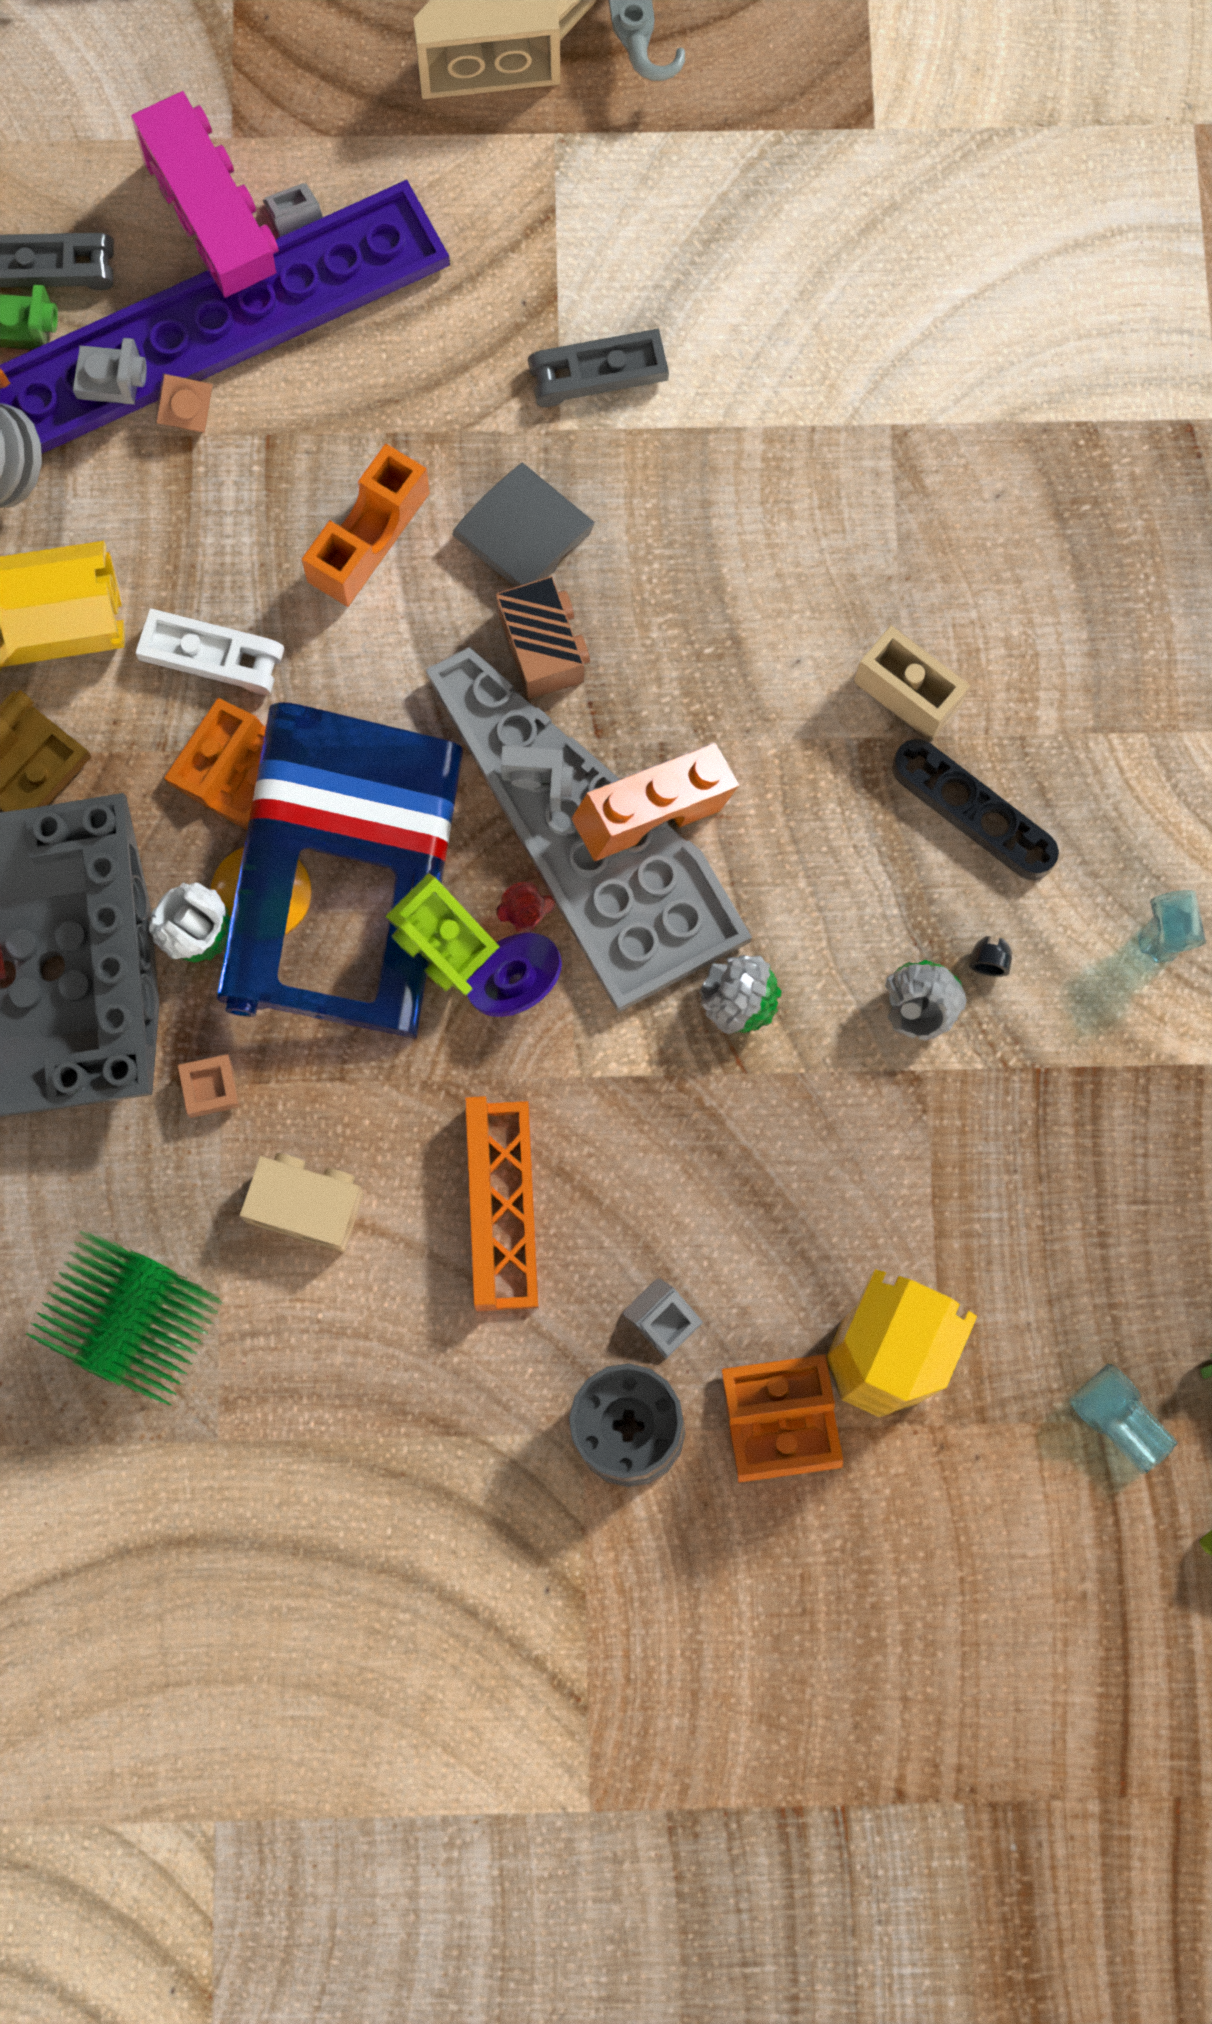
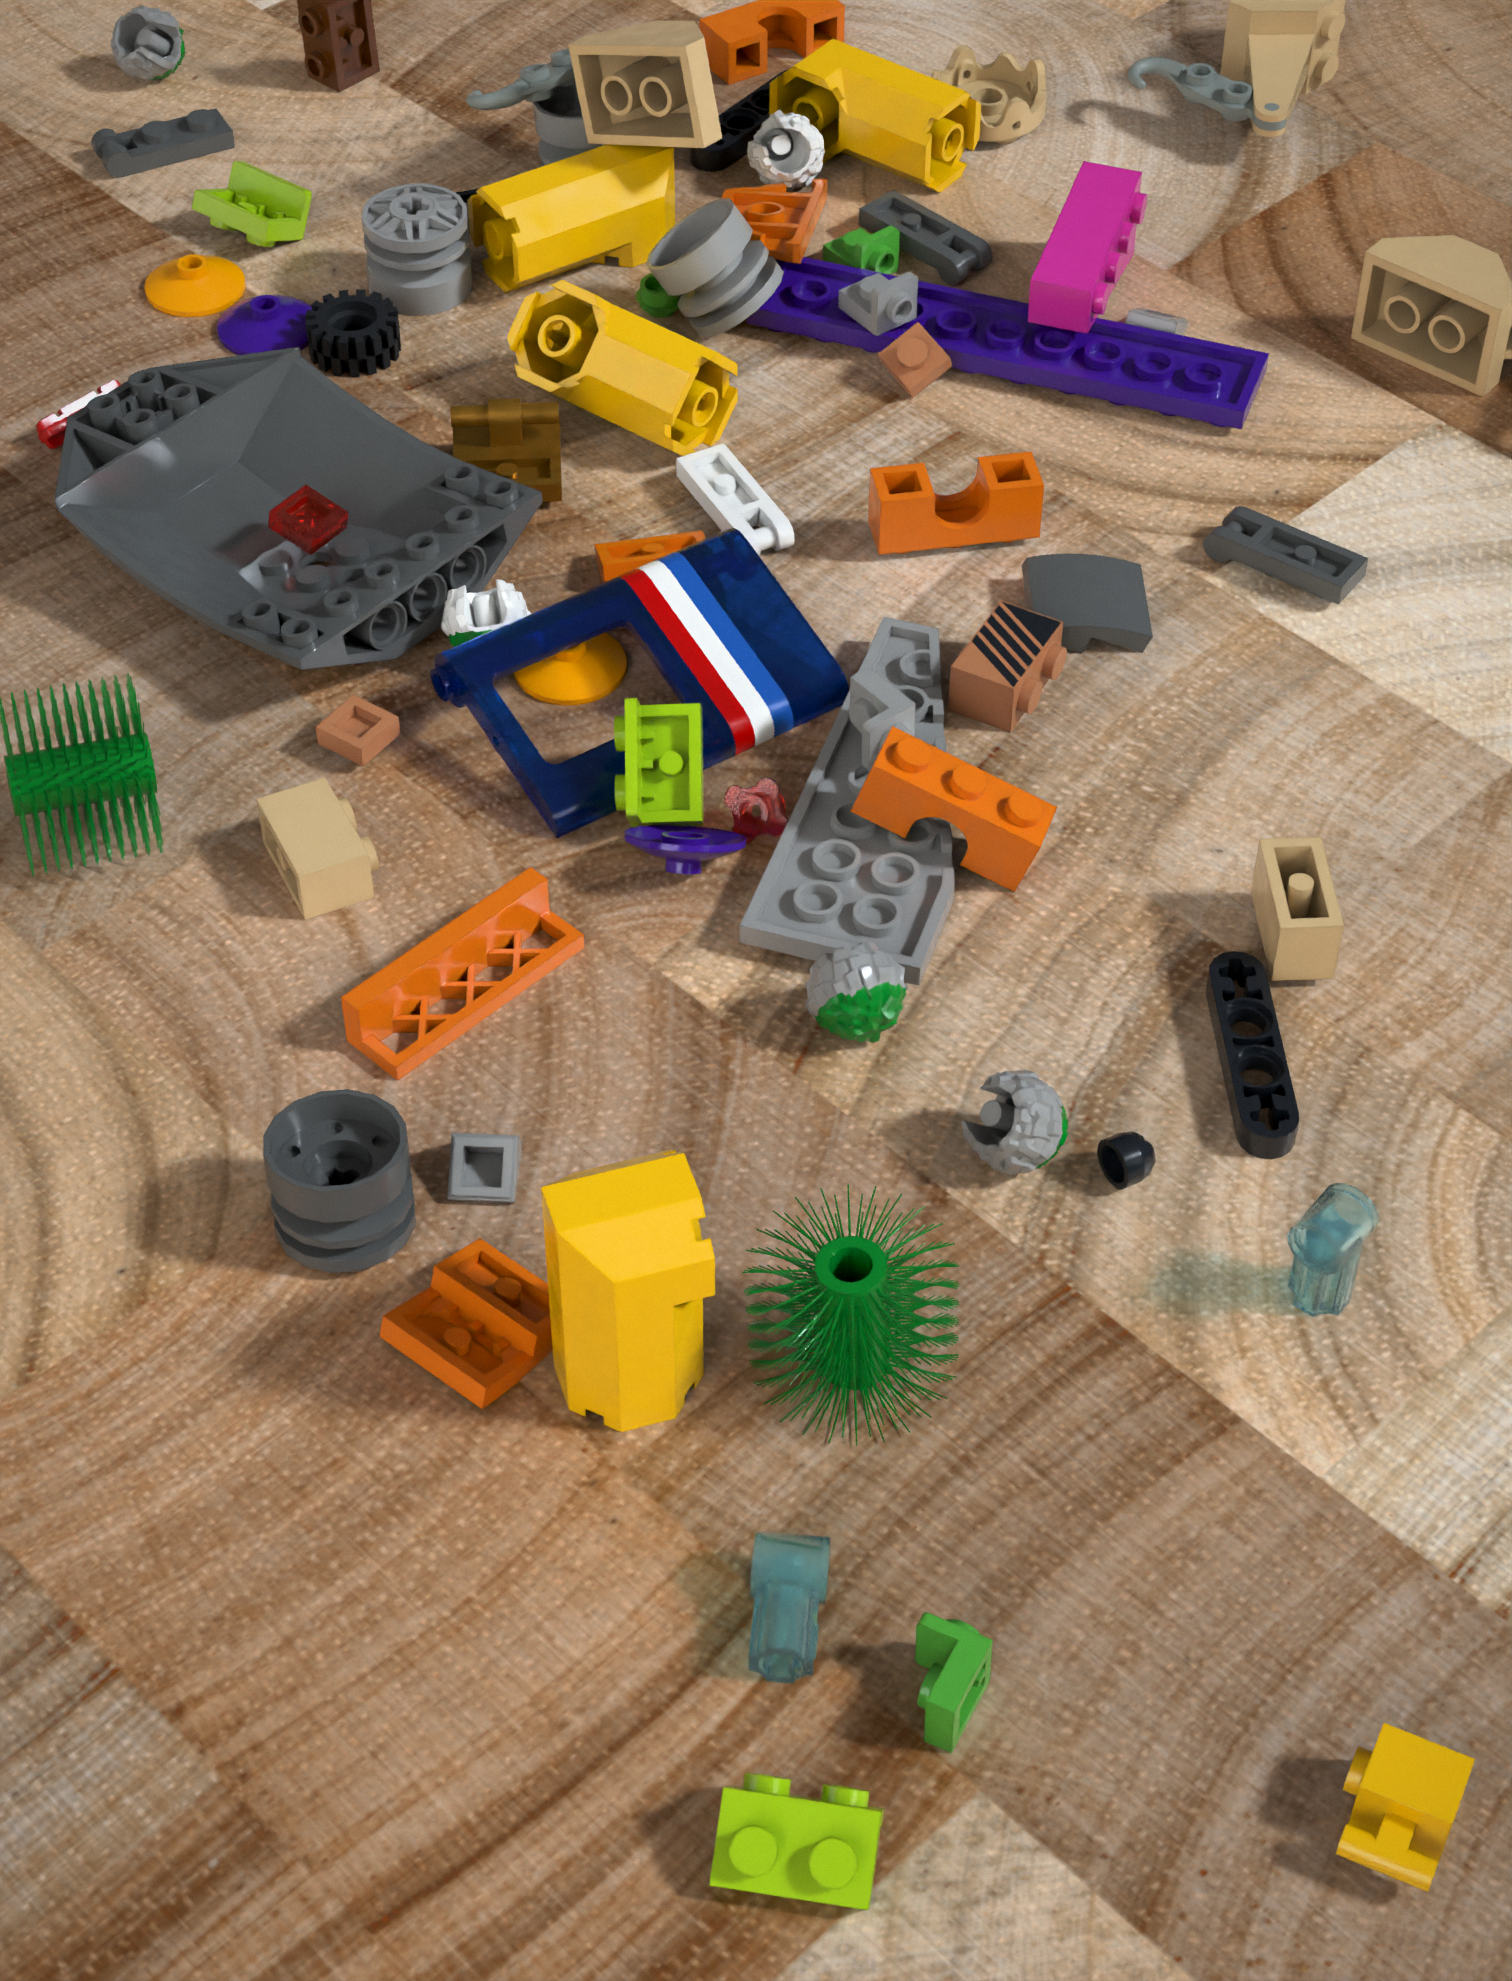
camera: 50 degrees right, 30 degrees down
(1010, 1215) = (852, 1314): none -> green piece

